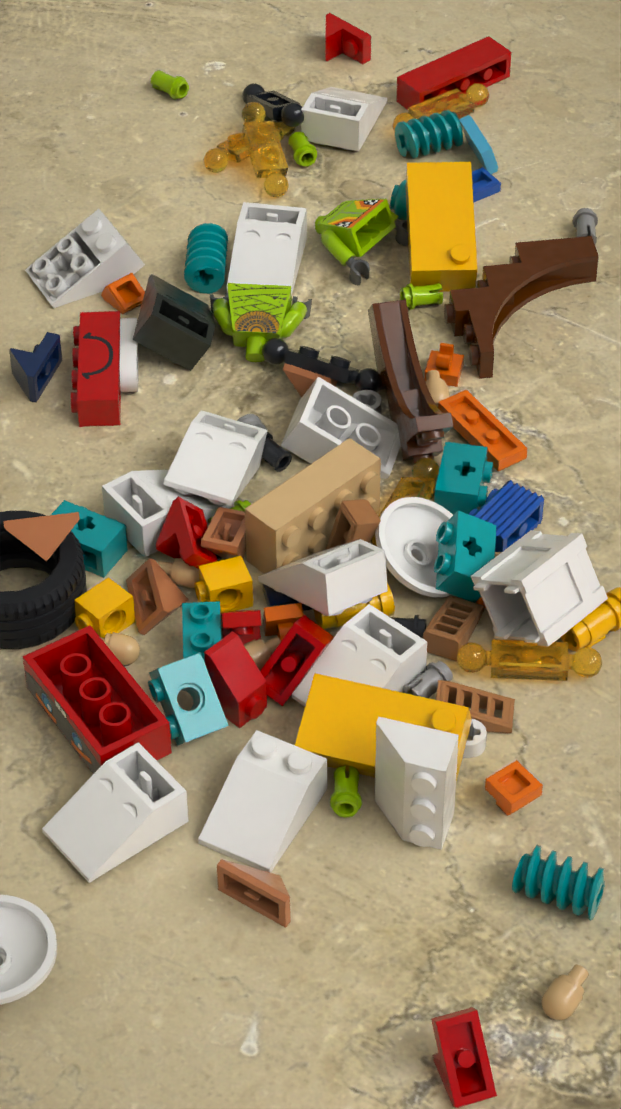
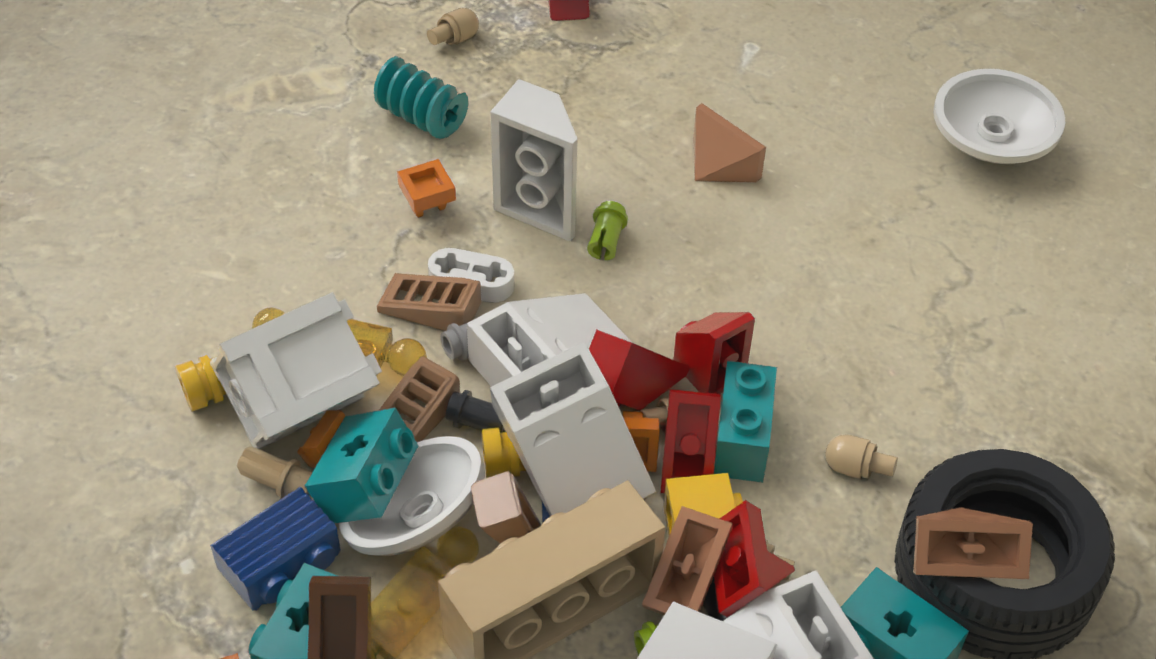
camera: 170 degrees left, 5 degrees up
(94, 699) = (890, 355): red brick -> none
(105, 608) = (870, 502): yellow brick -> none
(118, 813) = (860, 236): white slope -> none
(153, 595) = (799, 522): nougat slope -> none
(193, 677) = (783, 326): brick -> none
(265, 801) = (694, 235): white slope -> none
(344, 714) = (552, 249): yellow brick -> none

